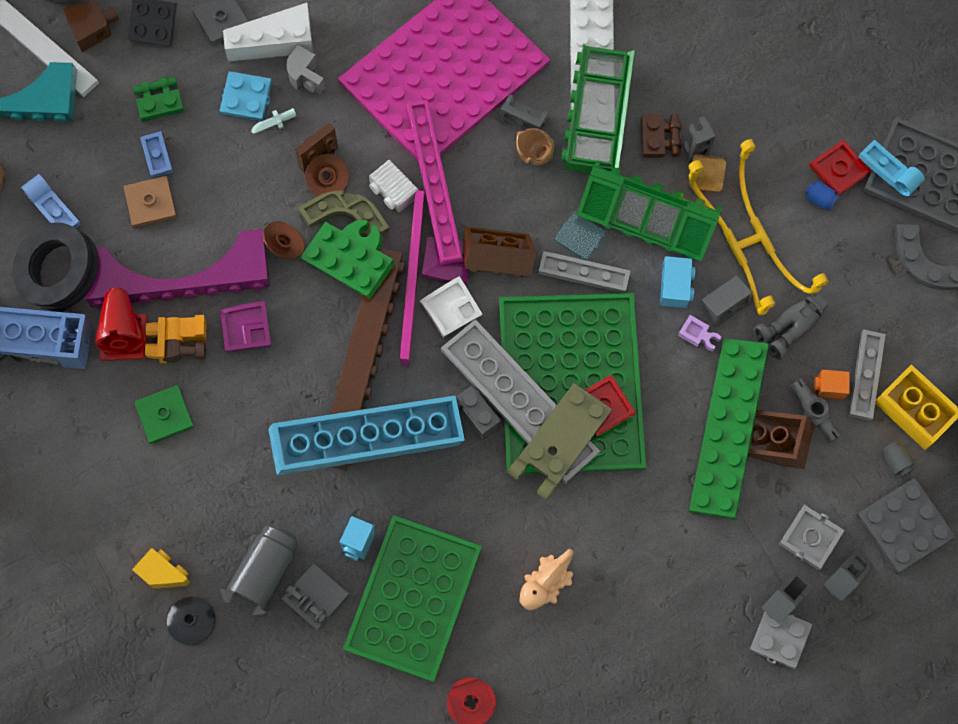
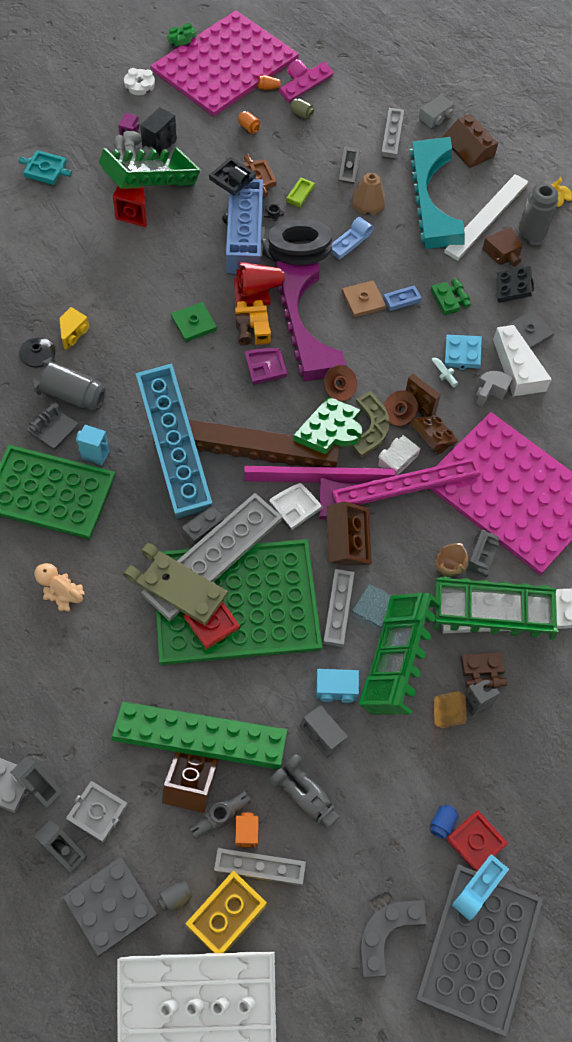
camera: 85 degrees right, 10 degrees down
(365, 142) = (434, 433): none -> reddish brown plate
(696, 332) = (290, 705): lavender plate -> none
(766, 303) = (394, 765): yellow bar -> none

